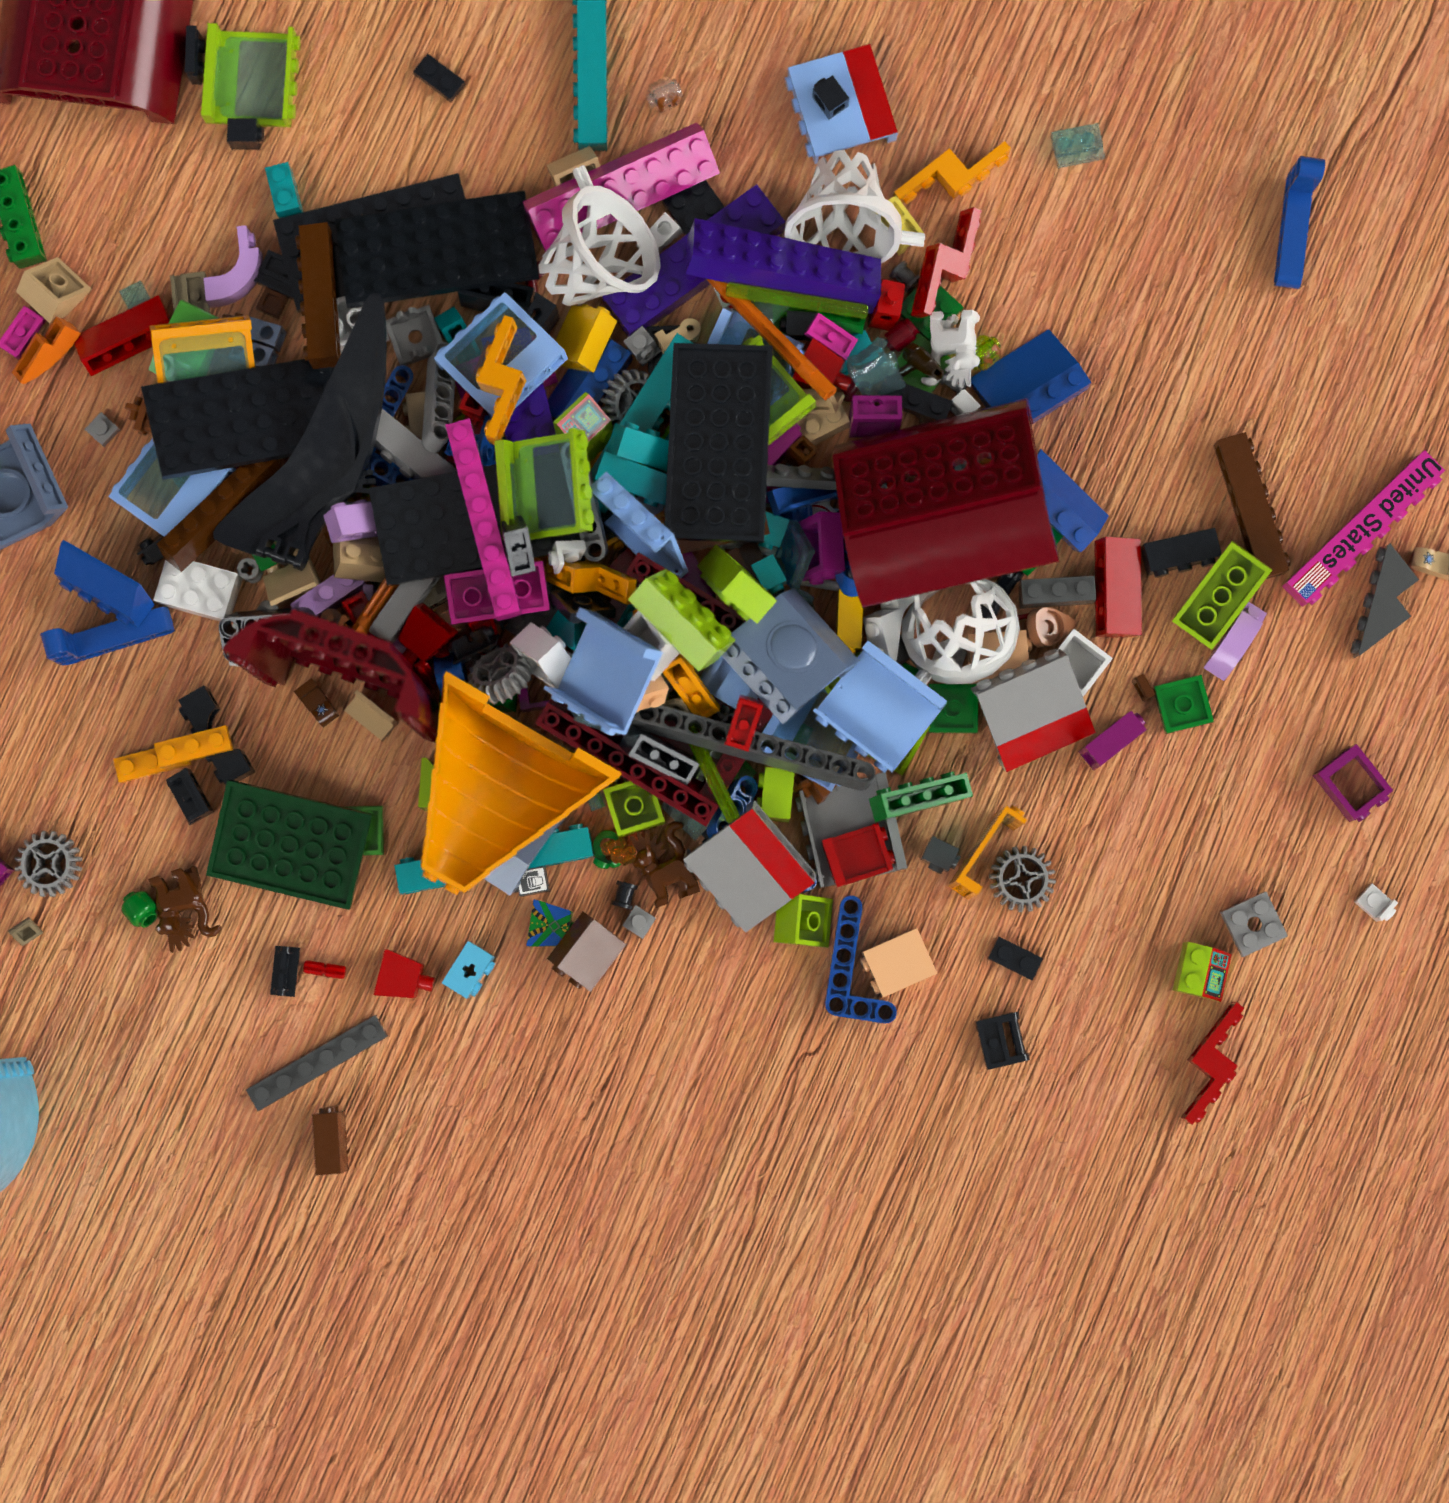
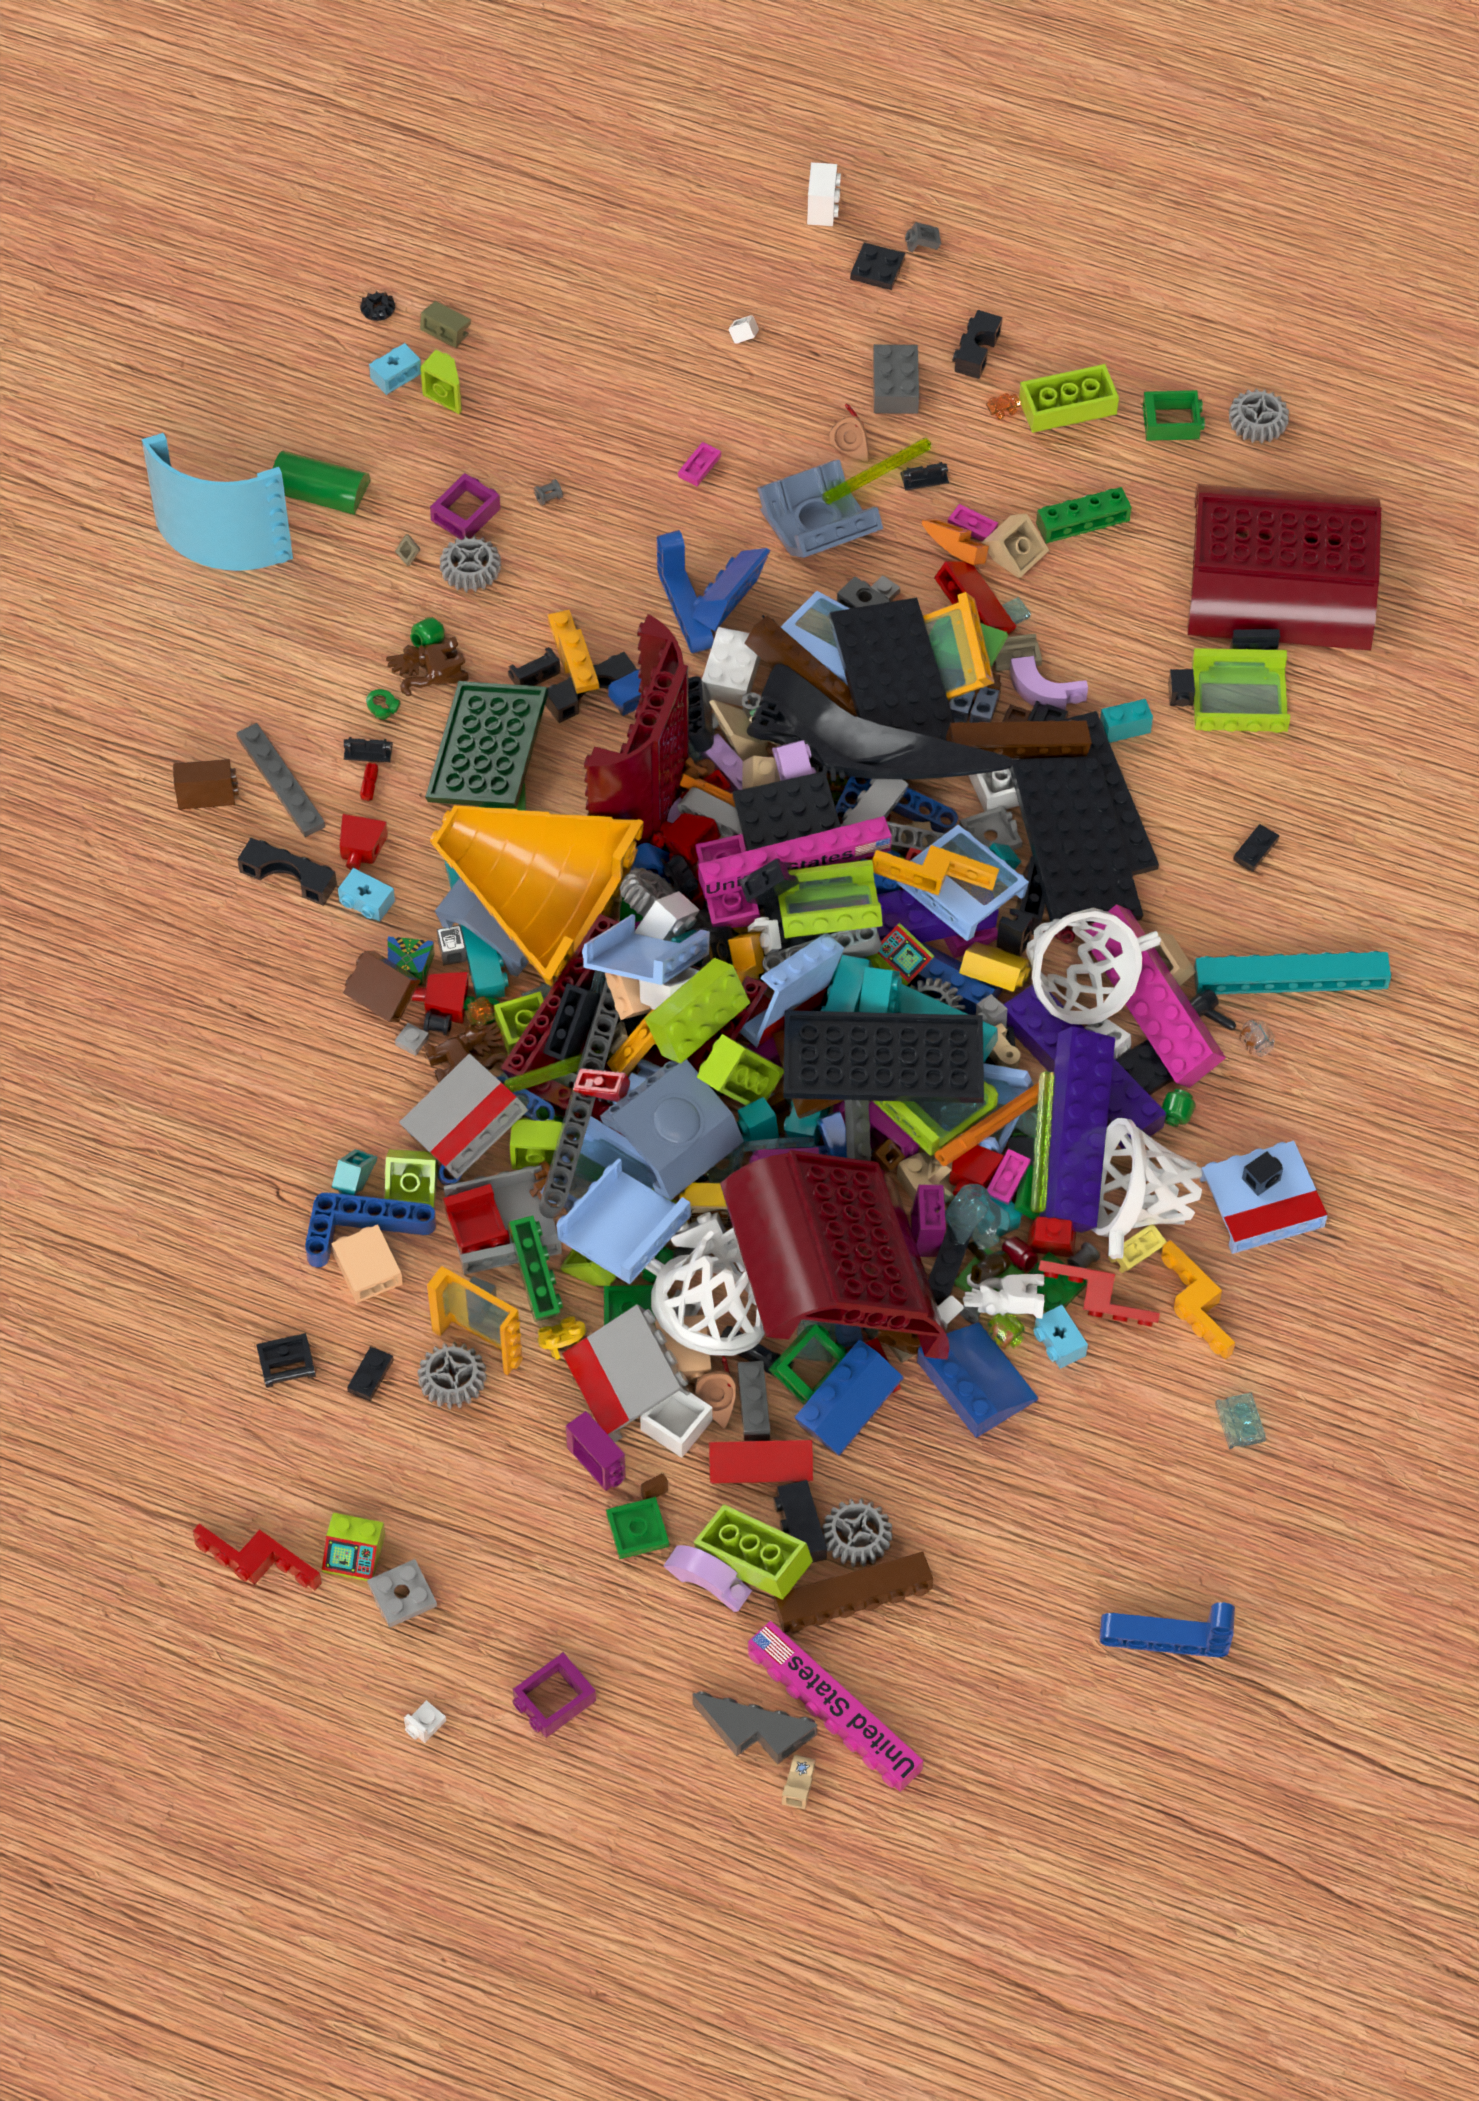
camera: 85 degrees right, 25 degrees down
(118, 463) = (859, 594): none -> dark grey brick
(224, 690) = (625, 693): none -> blue piece
(226, 945) = (378, 710): none -> green piece
(421, 1080) = (262, 859): none -> black arch
(593, 887) = (445, 994): none -> red torso
(625, 142) = (1205, 1003): none -> black piece
(742, 175) = (1178, 1107): none -> green head
(794, 976) = (353, 1172): none -> teal slope
(988, 782) = (561, 1335): none -> yellow plate
(996, 292) = (1060, 1336): none -> medium azure brick
(1182, 498) = (873, 1543): none -> light grey gear

